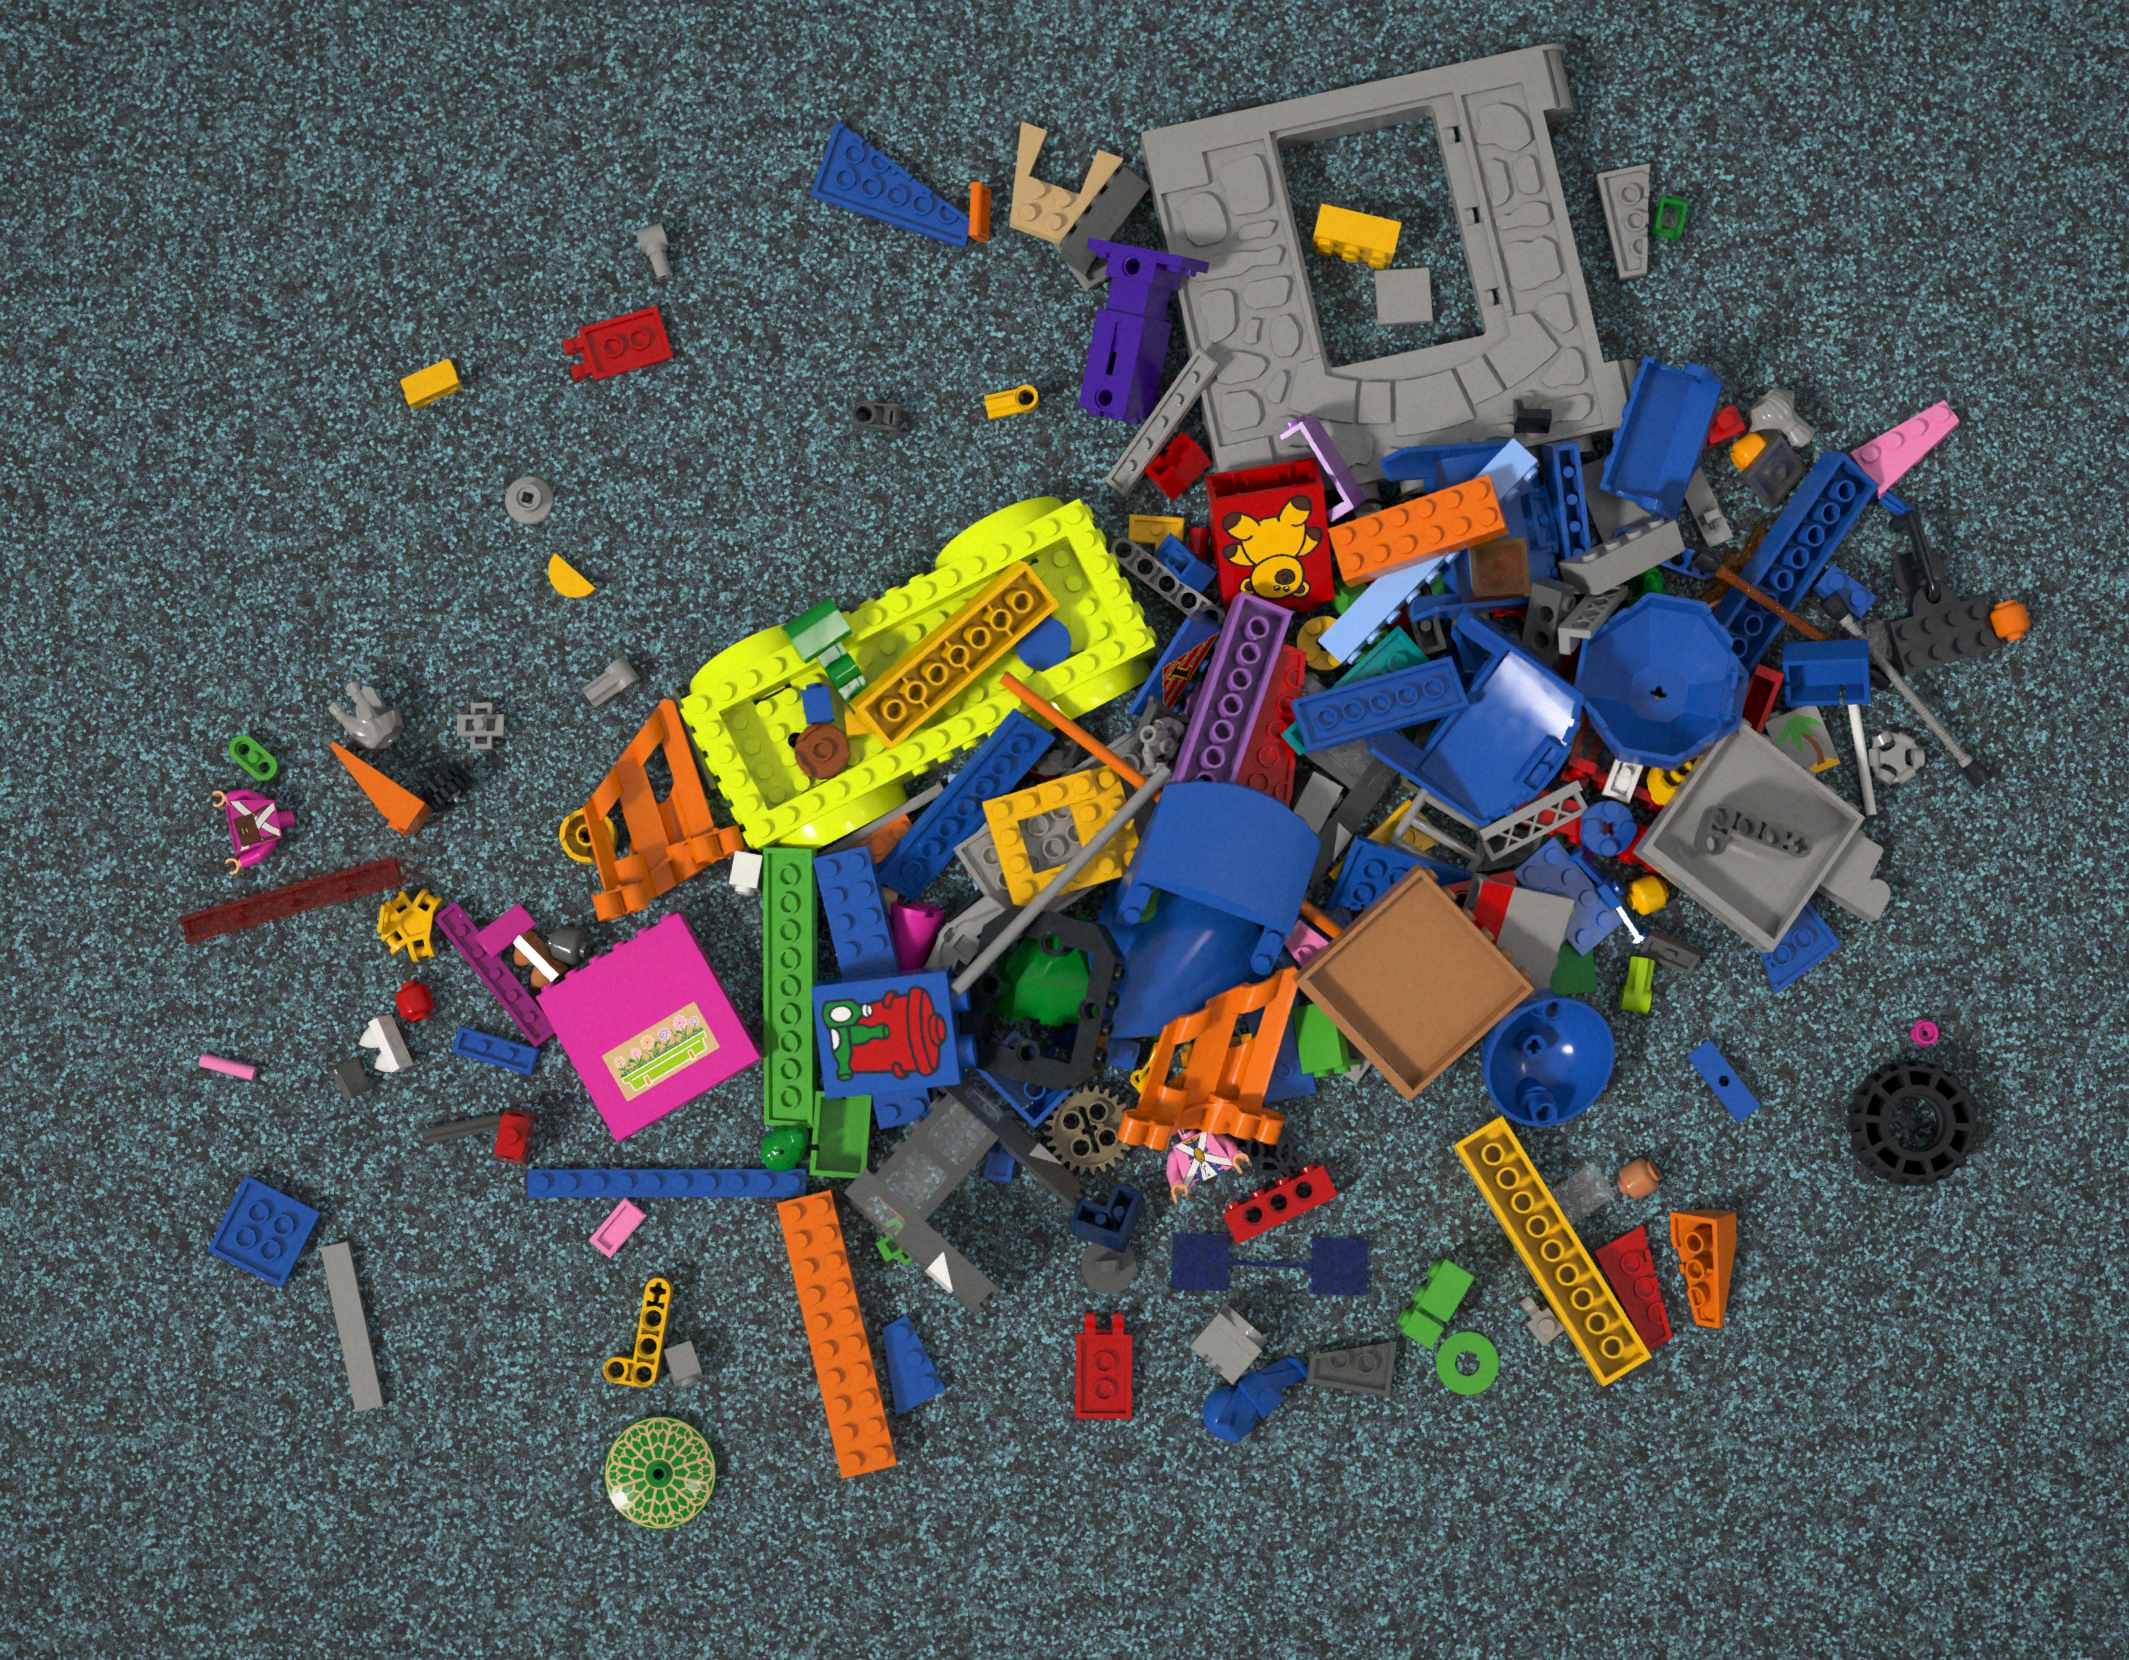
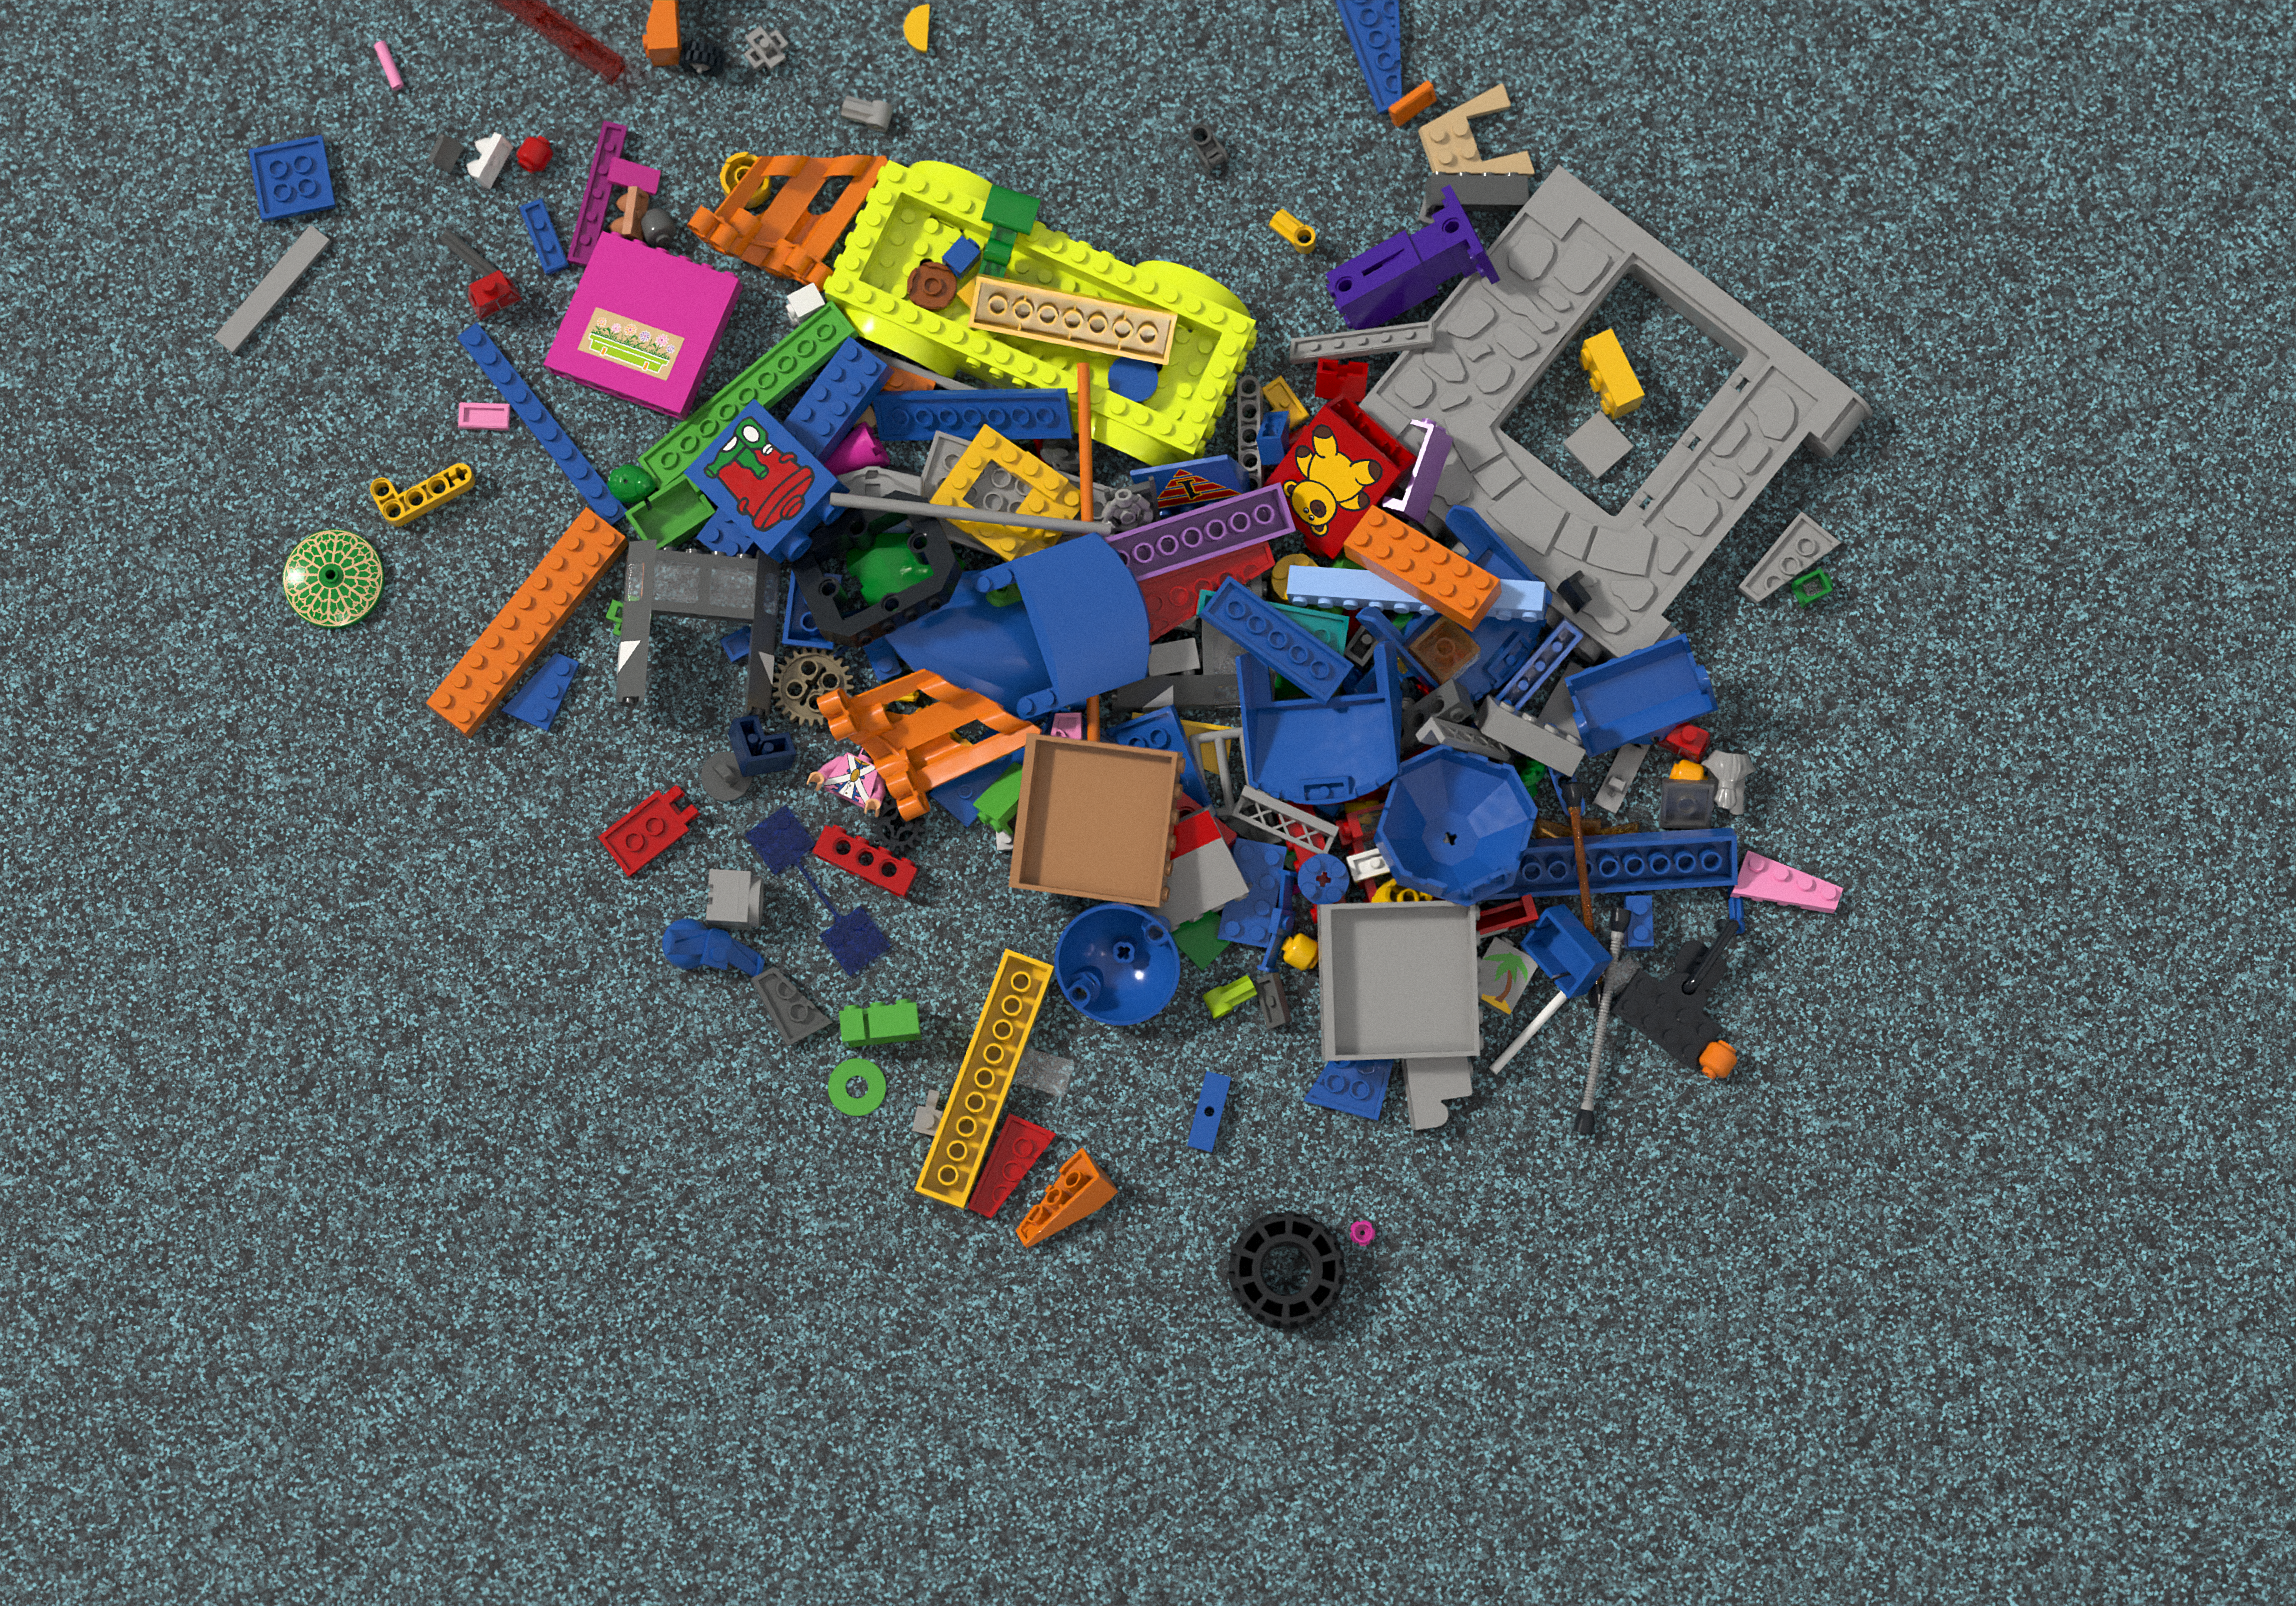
camera: 50 degrees right, 5 degrees down
(411, 923) = (586, 108): yellow piece -> none
(683, 1365) = (421, 533): light grey brick -> none
(1639, 1178) = (1088, 1104): nougat head -> none
(1755, 835) = (1396, 981): dark grey beam -> none
(1895, 758) = (1548, 1054): light grey piece -> none

